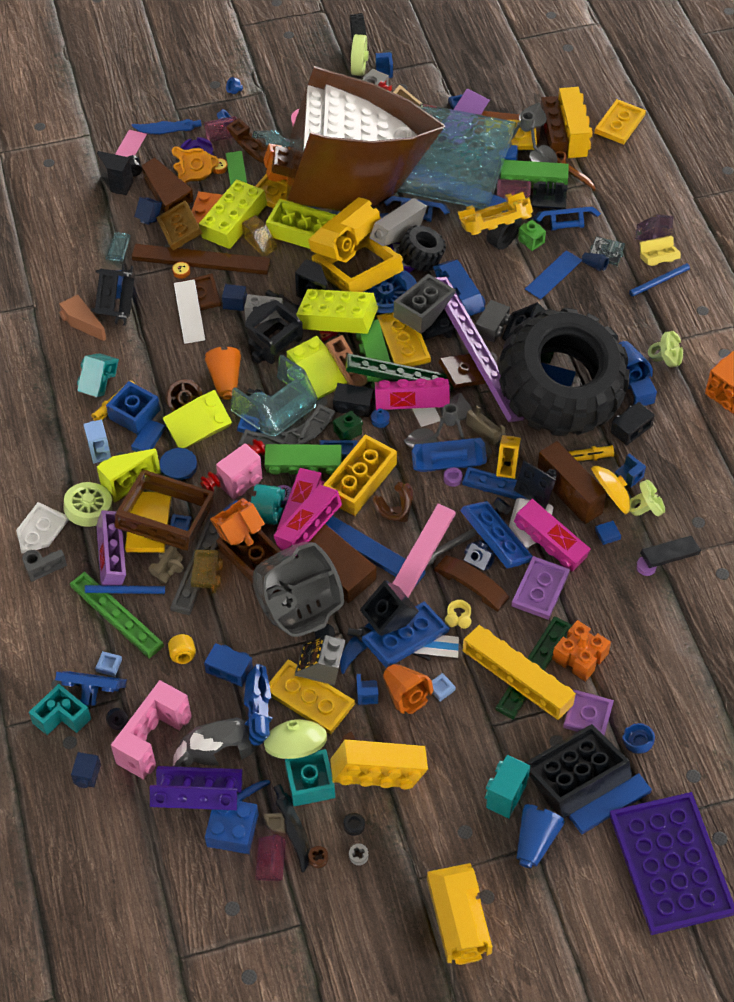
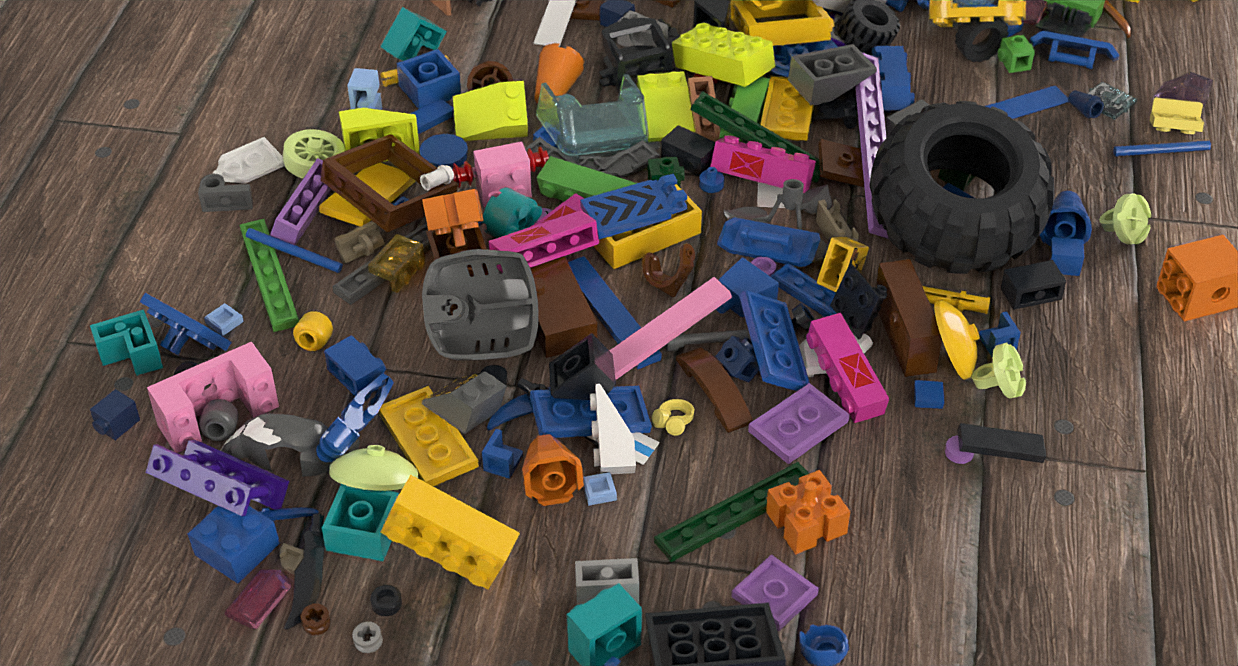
camera: 25 degrees right, 10 degrees down
(162, 743) = (218, 420): none -> dark grey head
(202, 492) = (442, 175): none -> white pin
(351, 466) = (635, 206): none -> blue tile
(437, 651) = (615, 440): none -> white slope
(454, 495) = (746, 277): none -> blue torso
(488, 753) = (602, 574): none -> light grey brick
(519, 672) = (708, 505): yellow brick -> none

